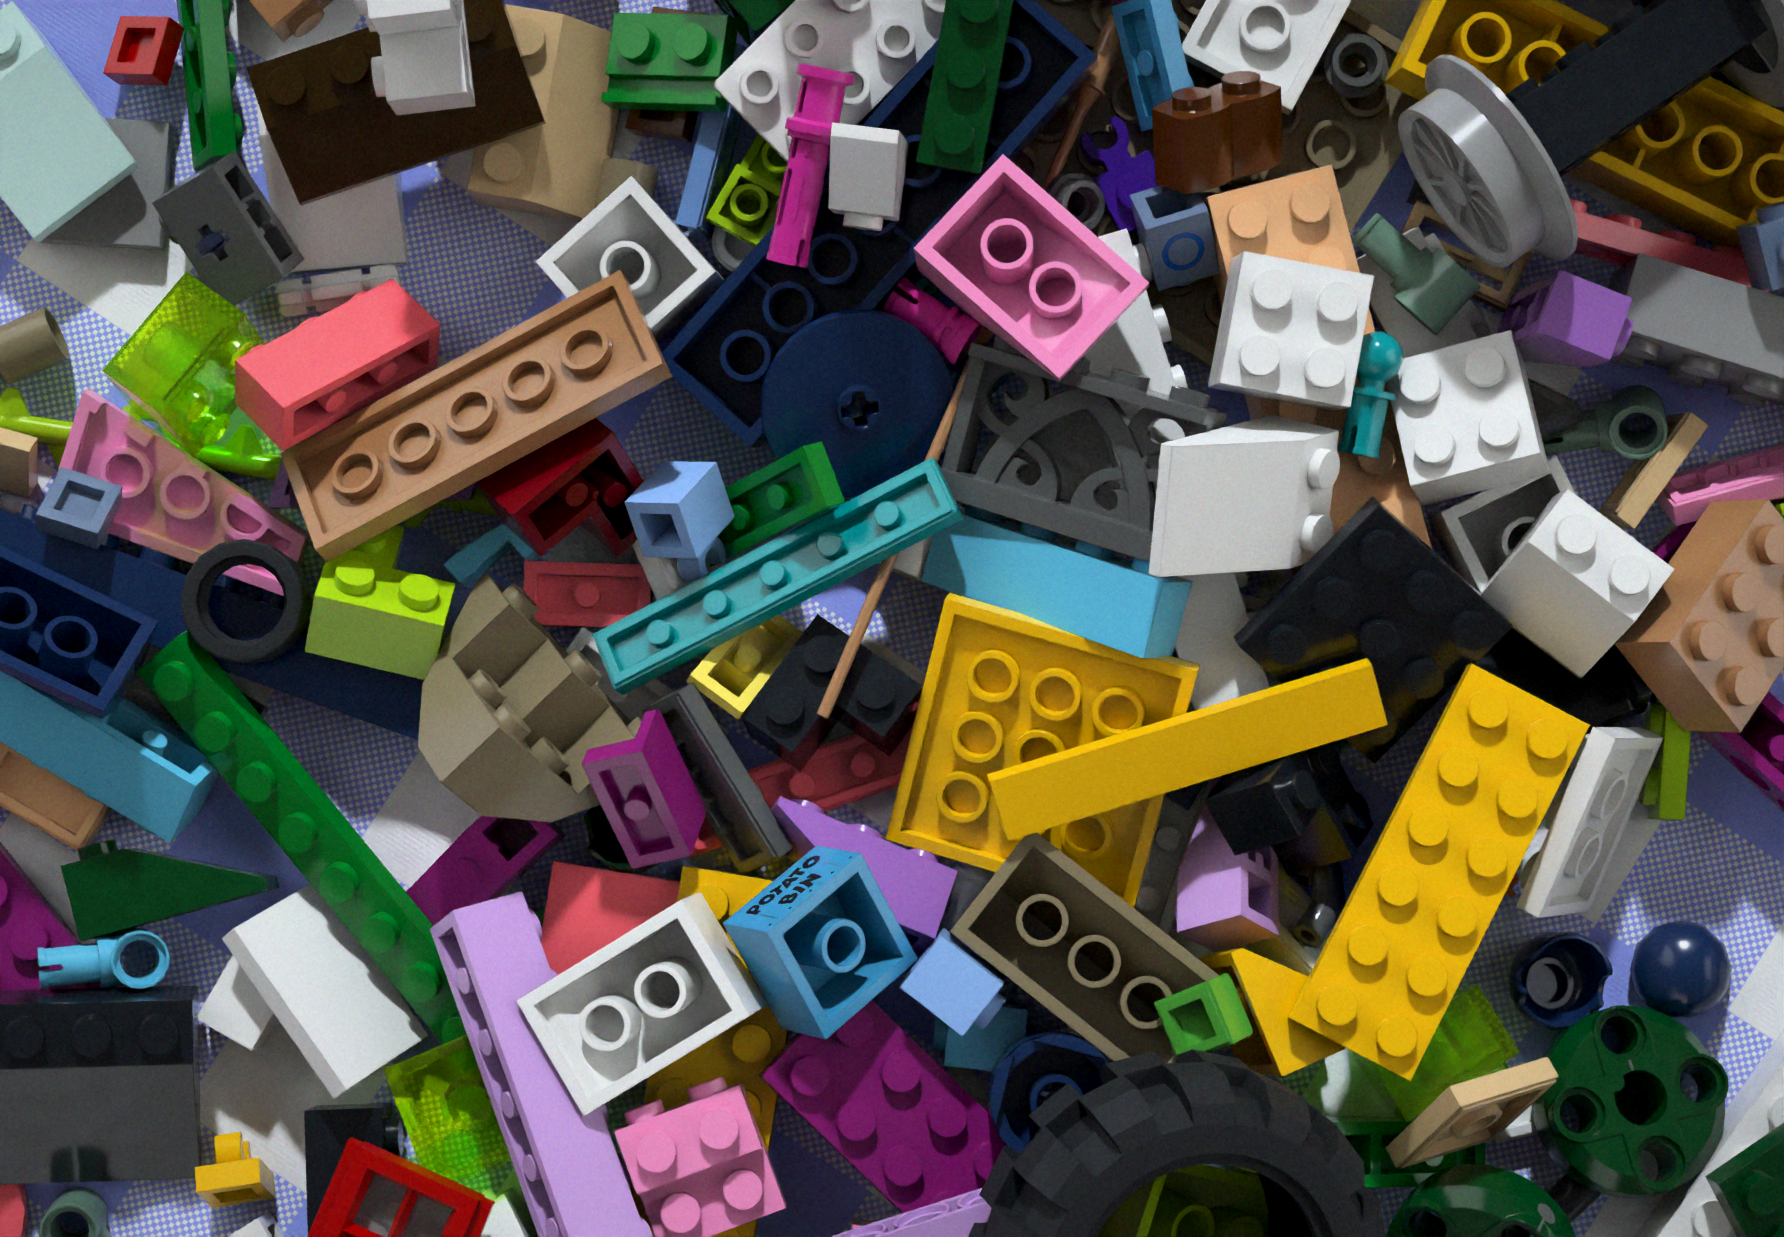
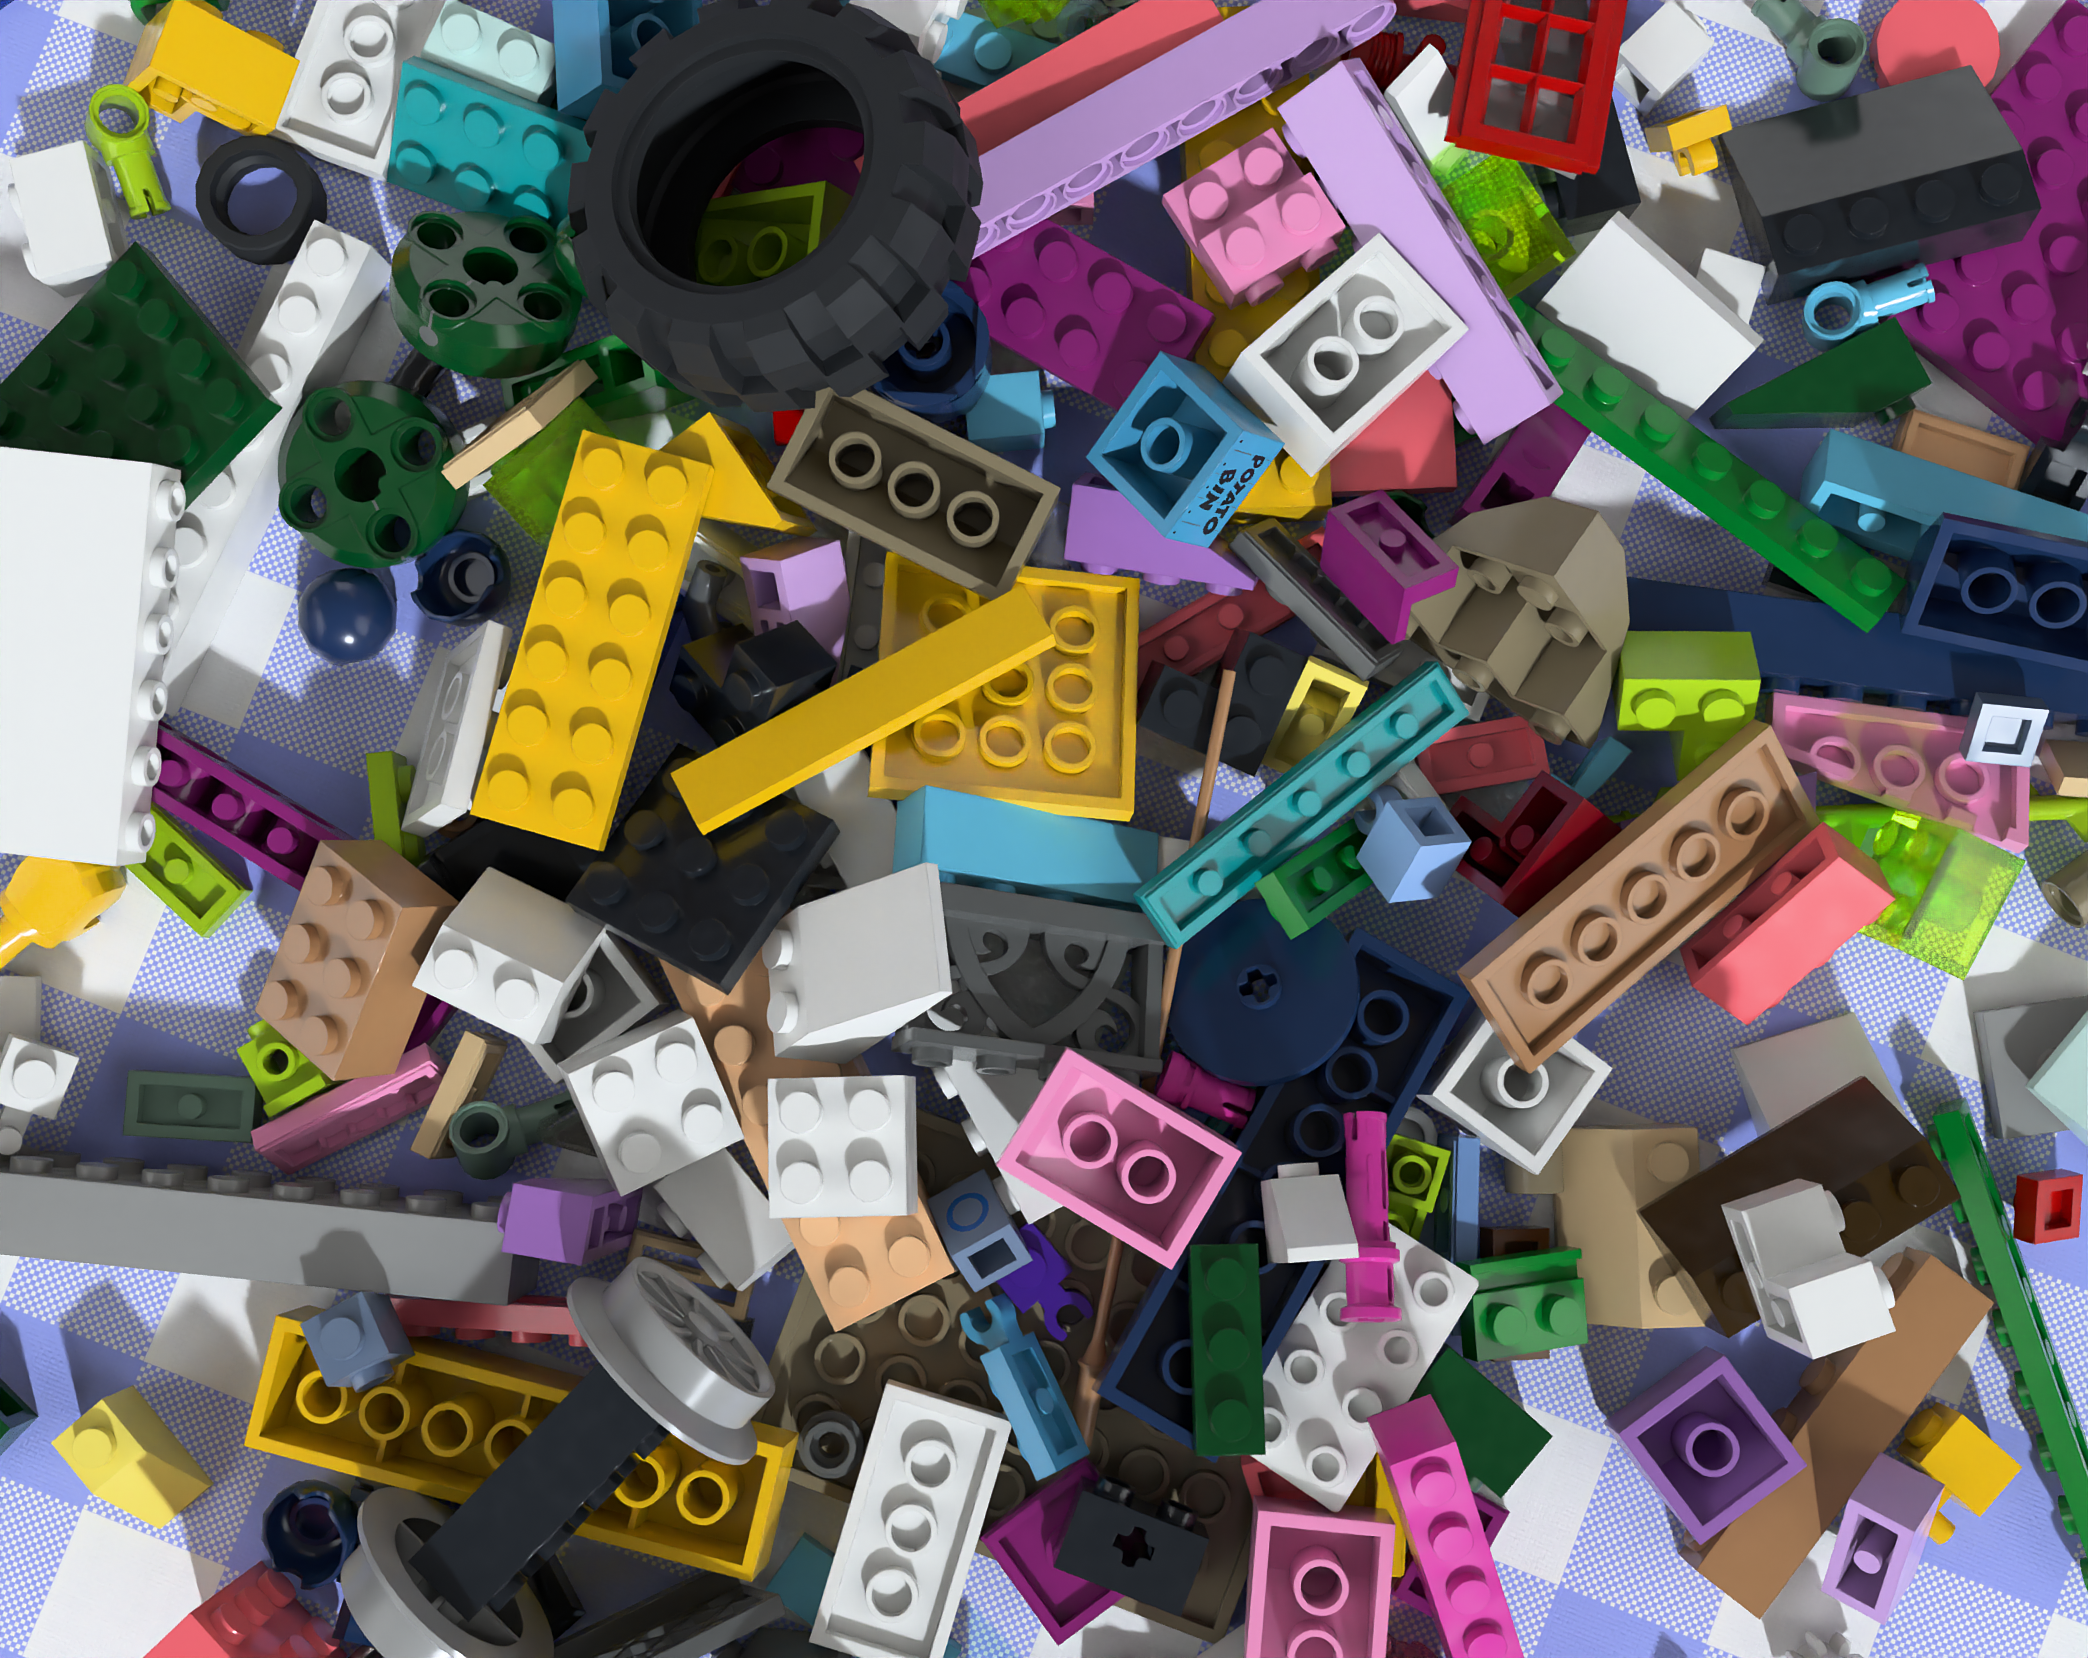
camera: 165 degrees right, 0 degrees up
(198, 589) = (1863, 646): black tyre -> none
(228, 200) = (1923, 1037): dark grey brick -> none
(329, 289) = (1800, 1005): white axle -> none
(955, 984) = (1045, 439): light blue brick -> none
(1086, 195) = (1072, 1245): dark grey plate -> none
(1204, 1016) = (795, 451): bright green slope -> none
(1217, 133) = (957, 1341): reddish brown brick -> none
(1365, 419) = (750, 1069): teal pin -> none
(1426, 283) = (719, 1233): sand green pin -> none

